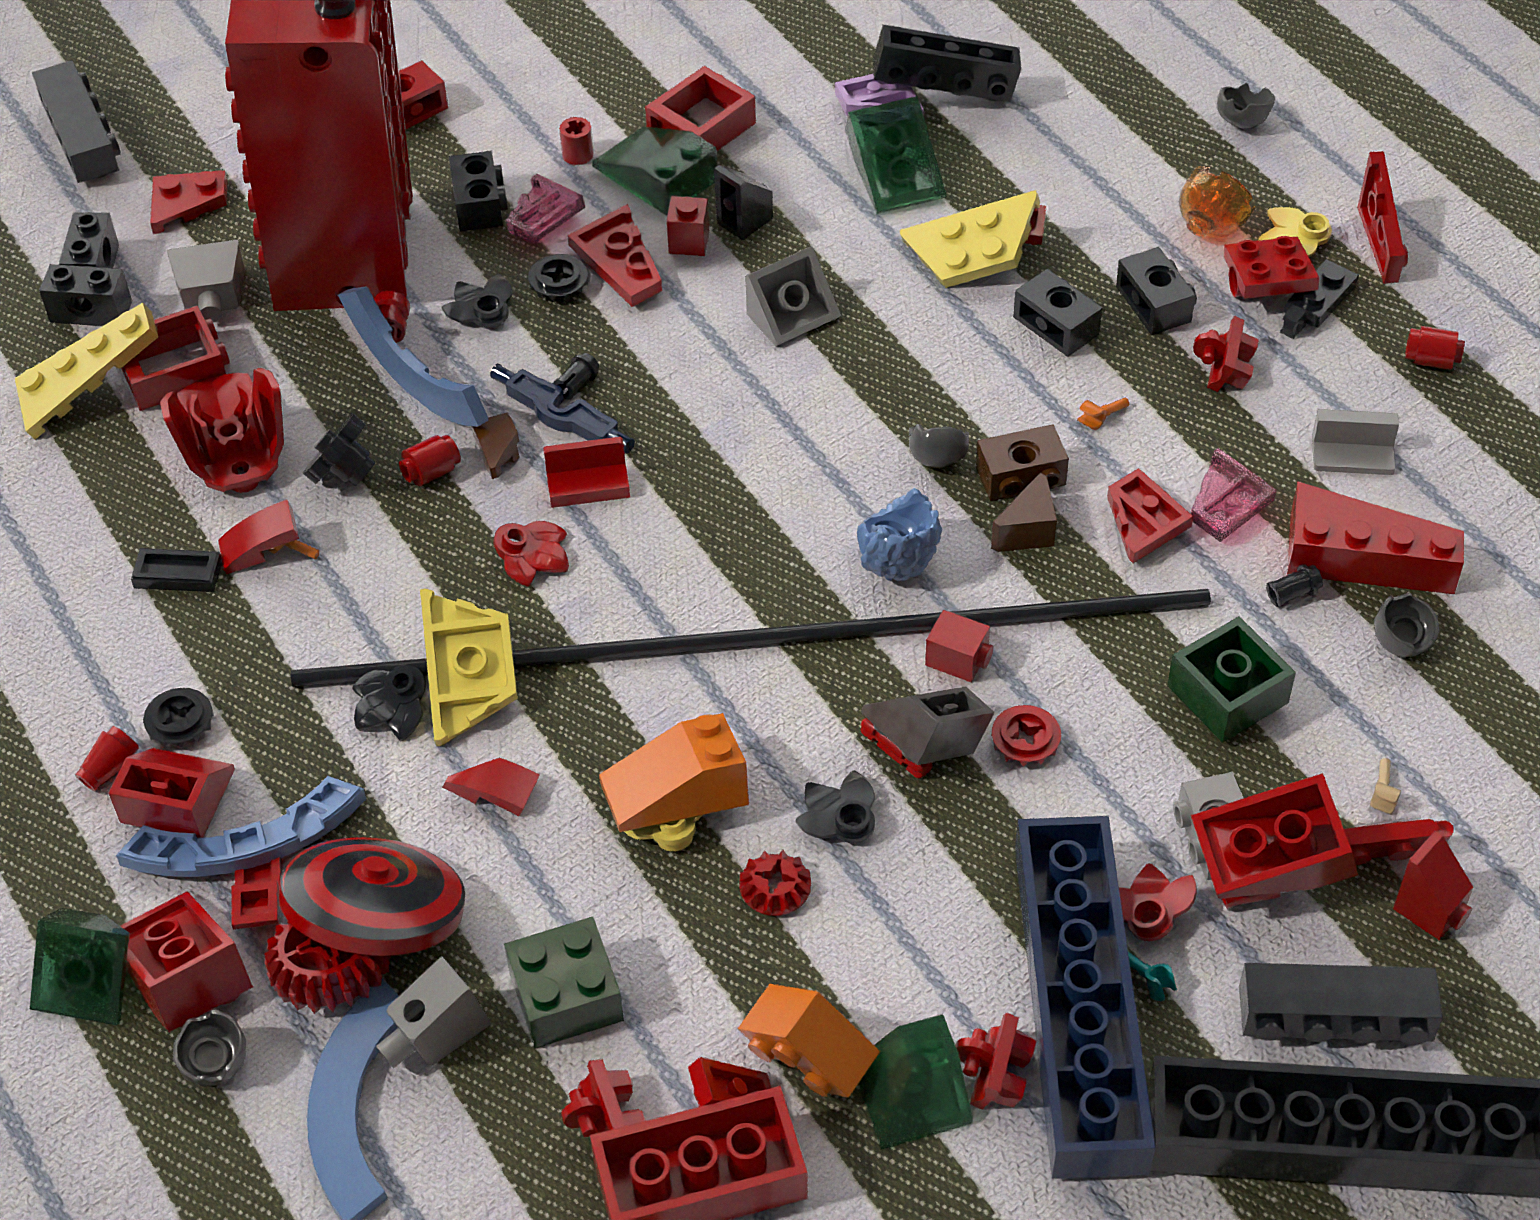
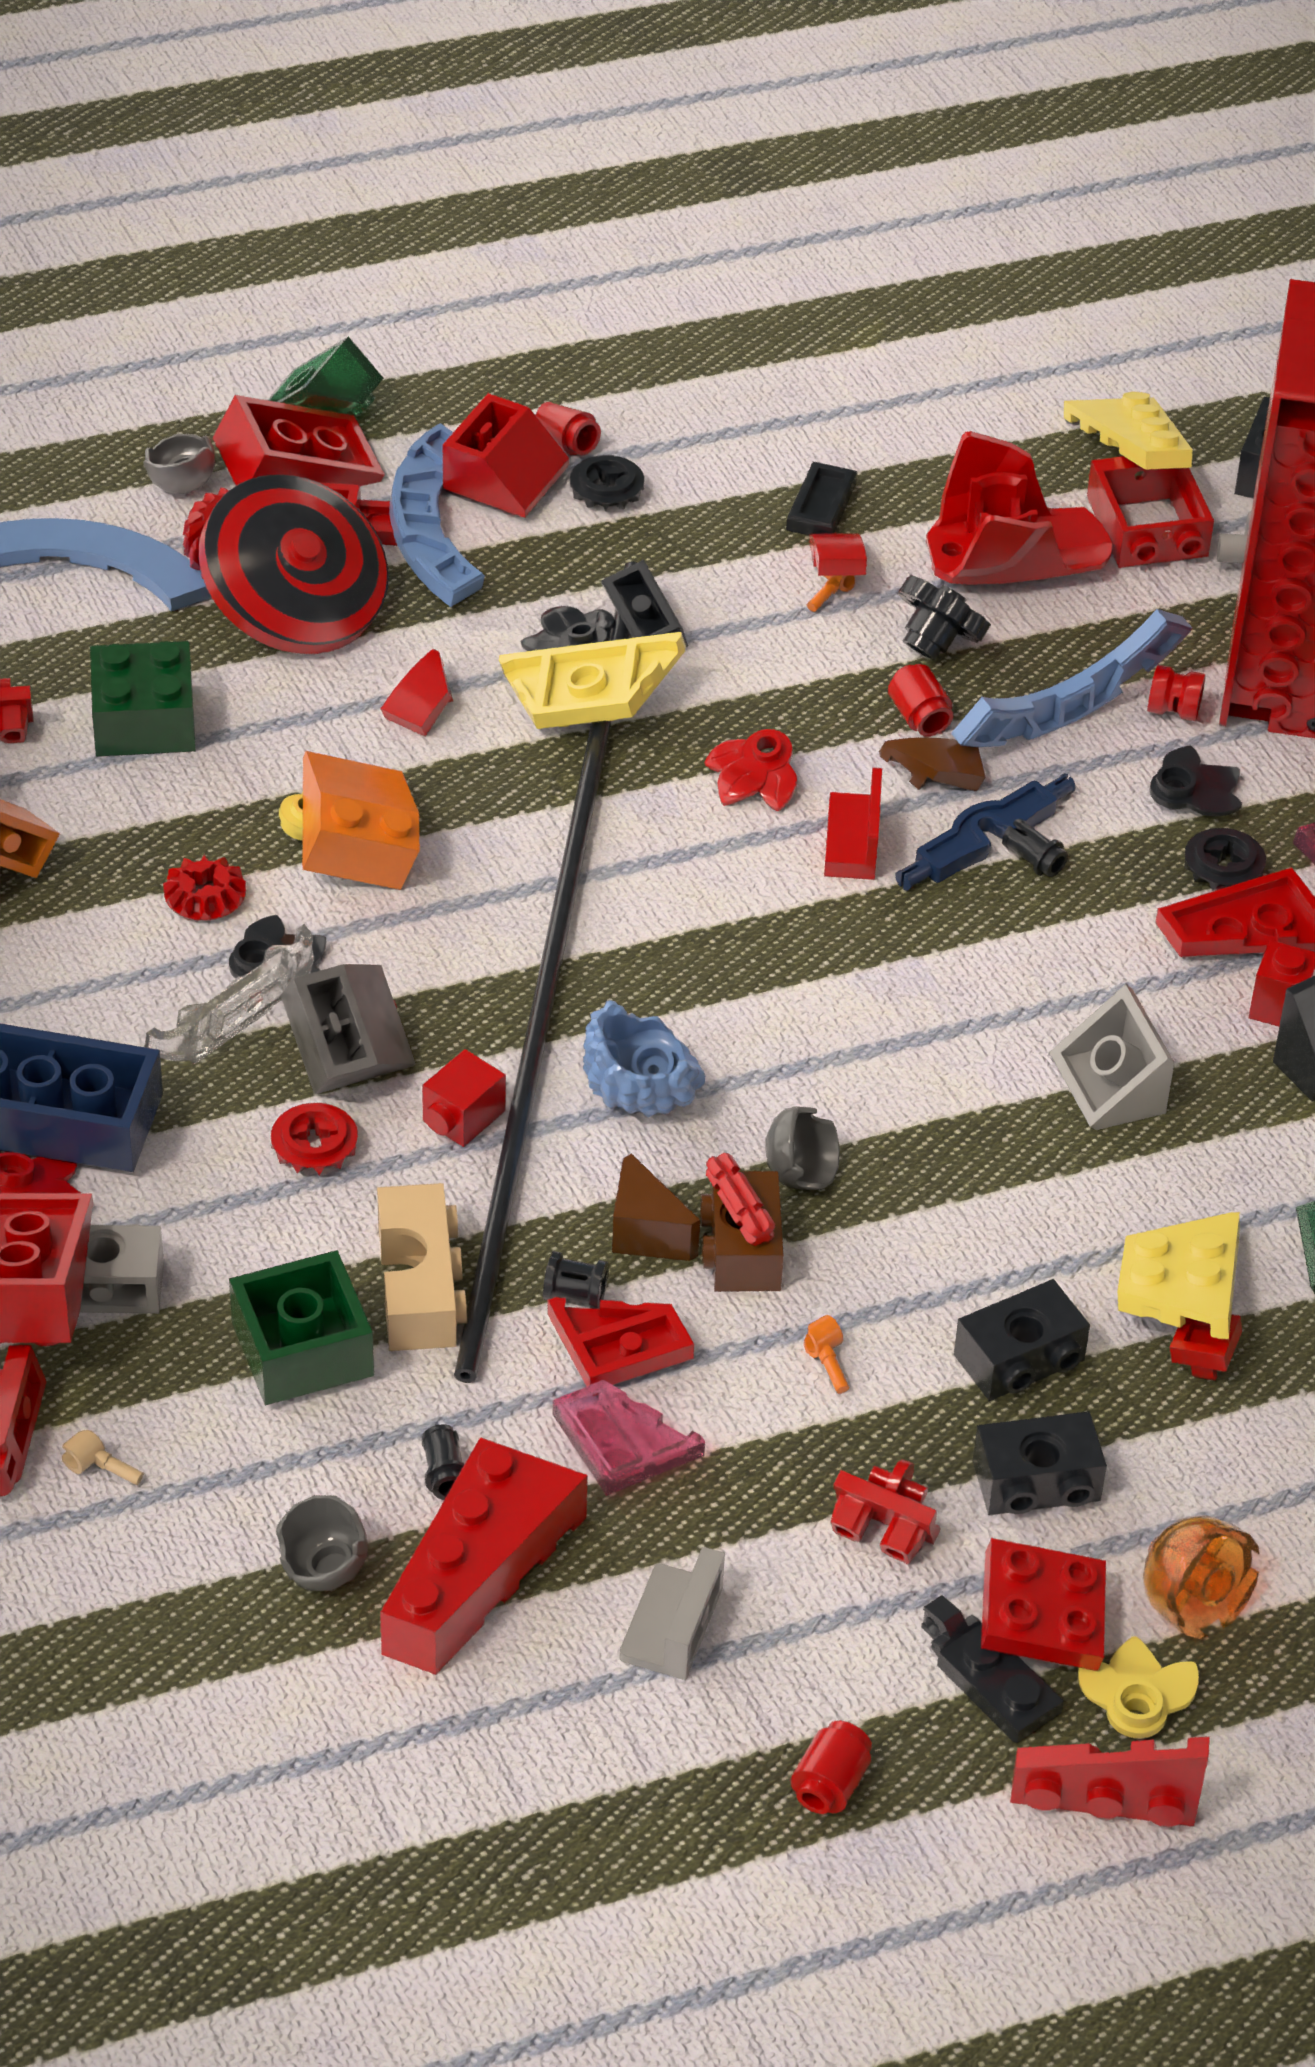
camera: 100 degrees right, 5 degrees down
(357, 648) = (641, 602): none -> black slope
(433, 1017) = (136, 587): light grey torso -> none
(933, 791) = (245, 1000): none -> clear plate
(1021, 446) = (740, 1199): none -> axle
(1104, 546) = (575, 1280): none -> black bush
(1161, 621) = (420, 1300): none -> tan arch

